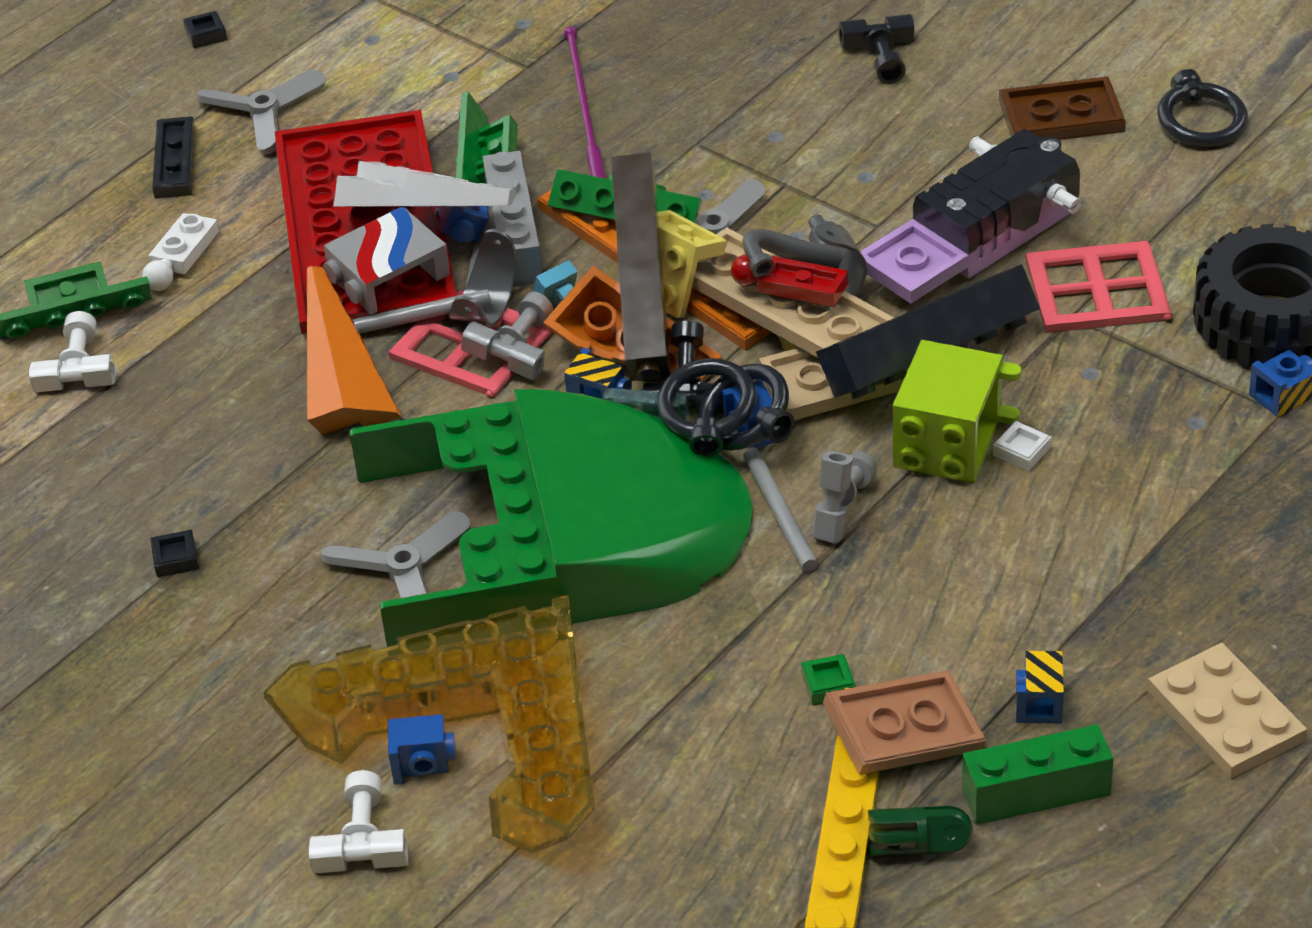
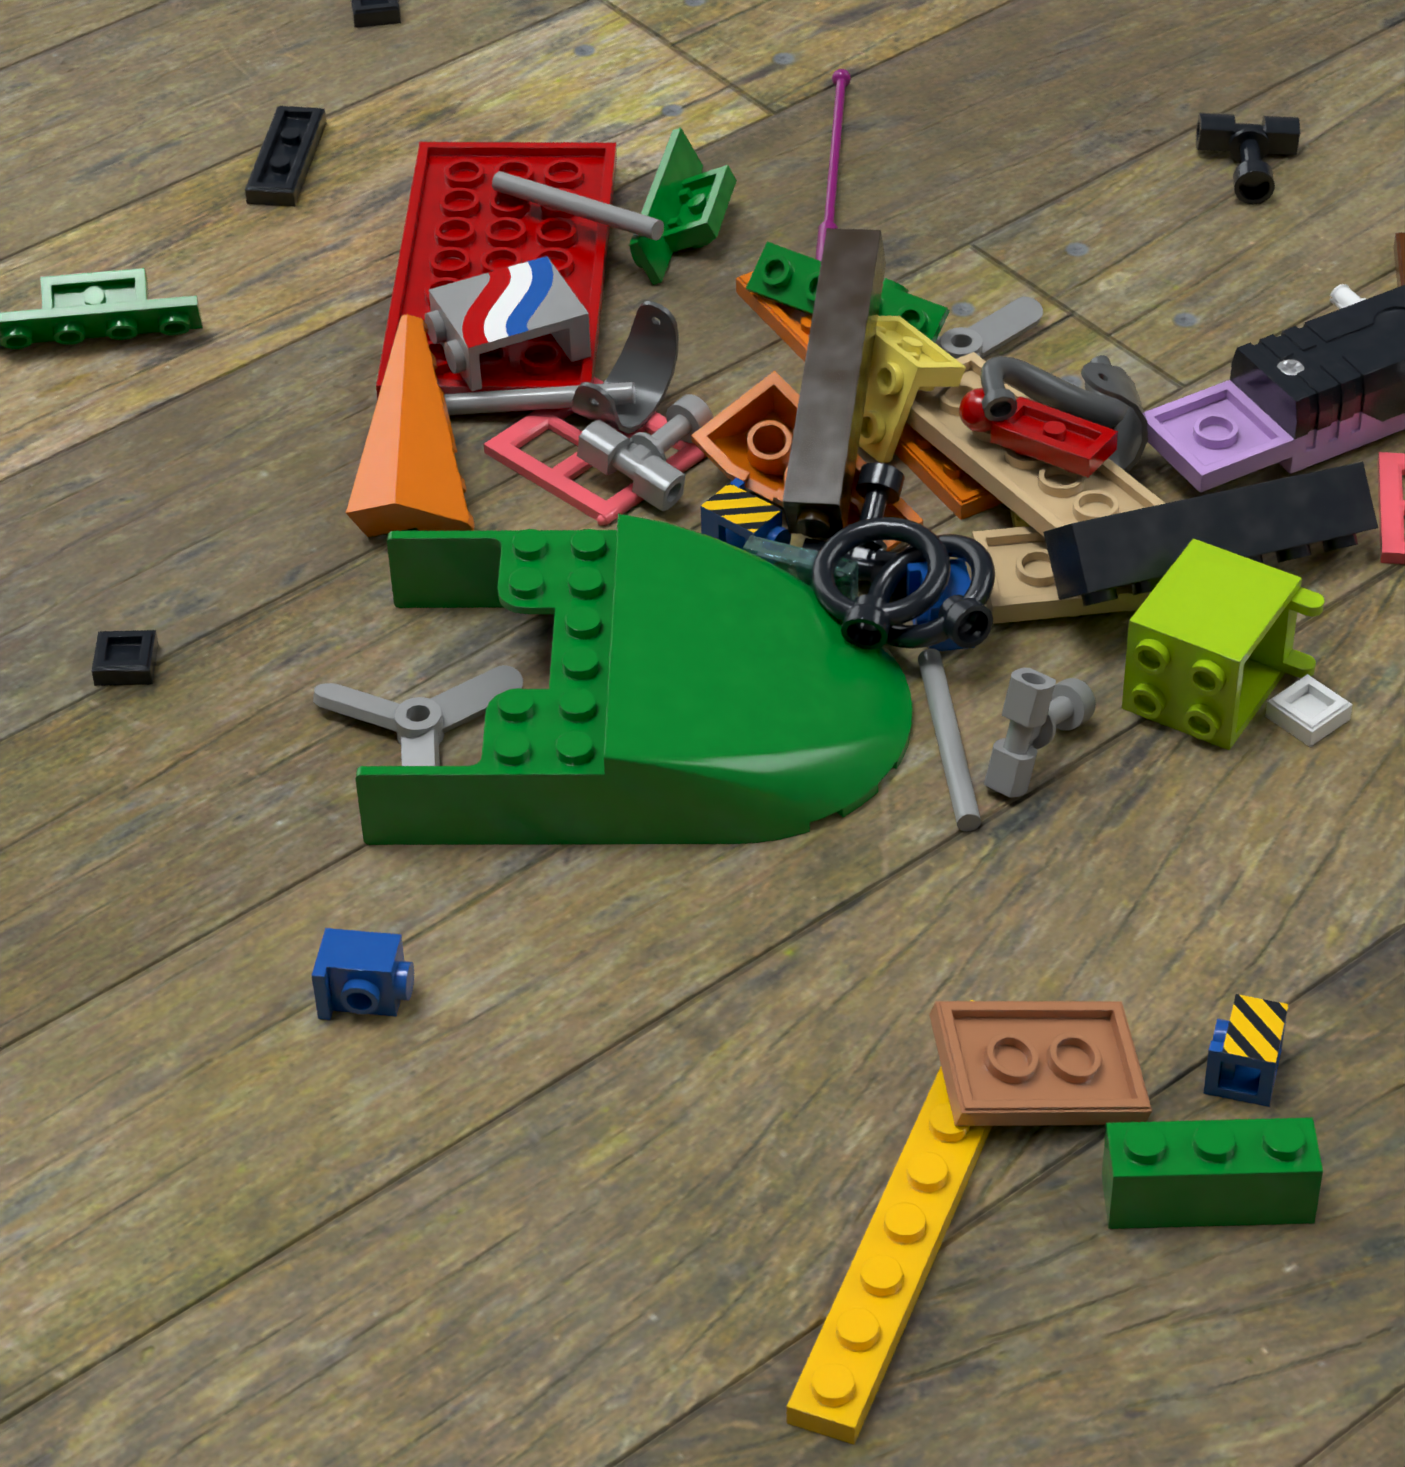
camera: 10 degrees right, 0 degrees up
(74, 362) = (74, 390): white bar -> none
(179, 249) = (254, 271): white plate -> none
(265, 105) = (422, 108): light grey piece -> none
(359, 838) = (244, 1083): white bar -> none
(399, 186) = (543, 230): white wedge -> none
(441, 167) = (578, 205): none -> light grey bar
(461, 222) = (620, 289): blue brick -> none
(499, 665) = (505, 883): clear yellow wedge -> none
(516, 220) = (694, 292): light grey wedge -> none
(556, 282) = (725, 385): medium azure tile -> none
(826, 676) = (950, 978): green tile -> none
(918, 830) = (1020, 1222): dark green arm -> none

